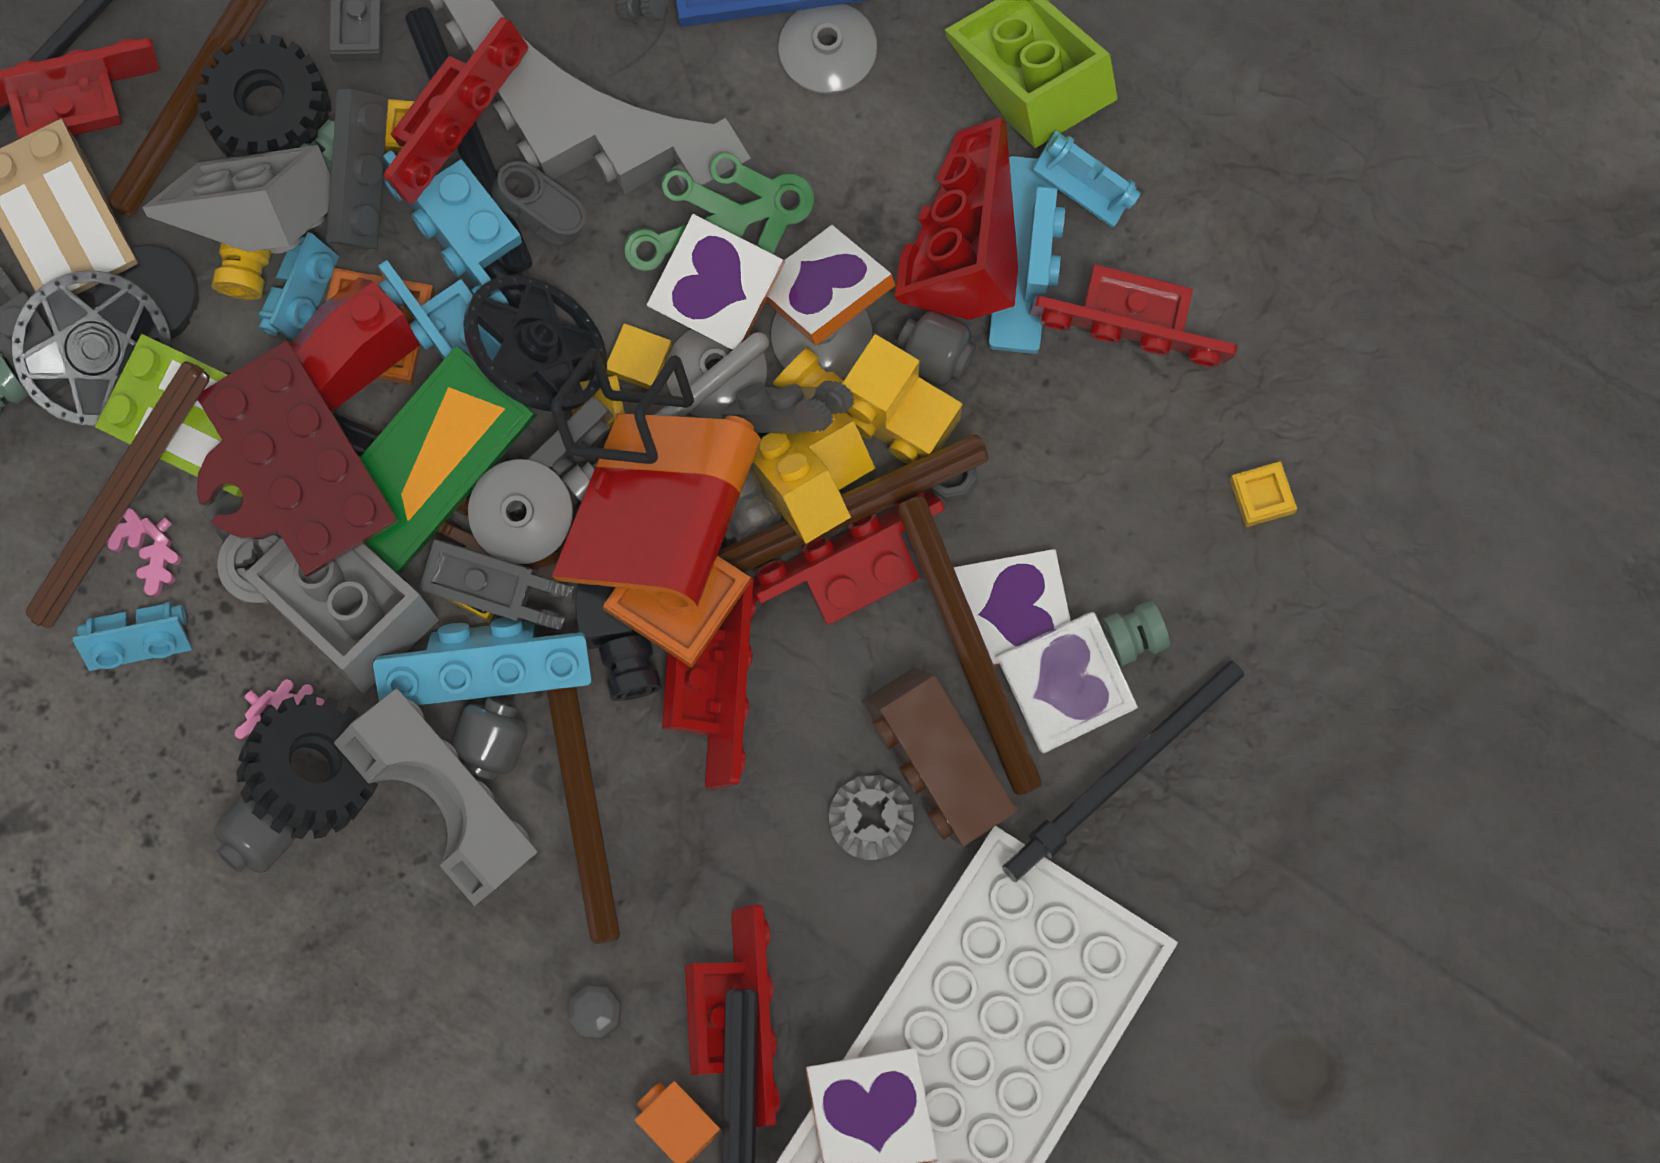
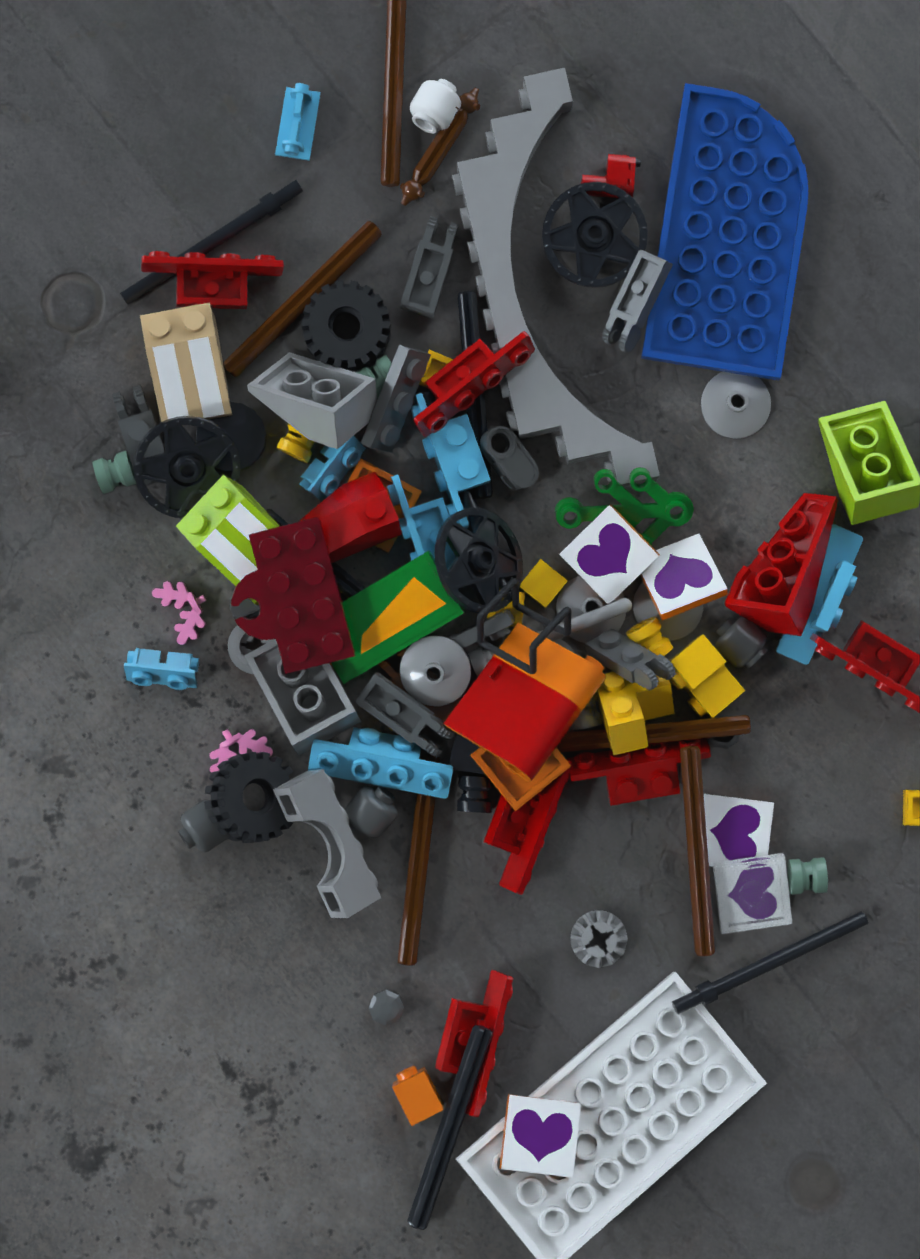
camera: 15 degrees right, 10 degrees up
(117, 494) = (179, 579): reddish brown axle -> none
(938, 756) = (654, 915): reddish brown wedge -> none
(1085, 179) = (878, 557): medium azure hinge -> none

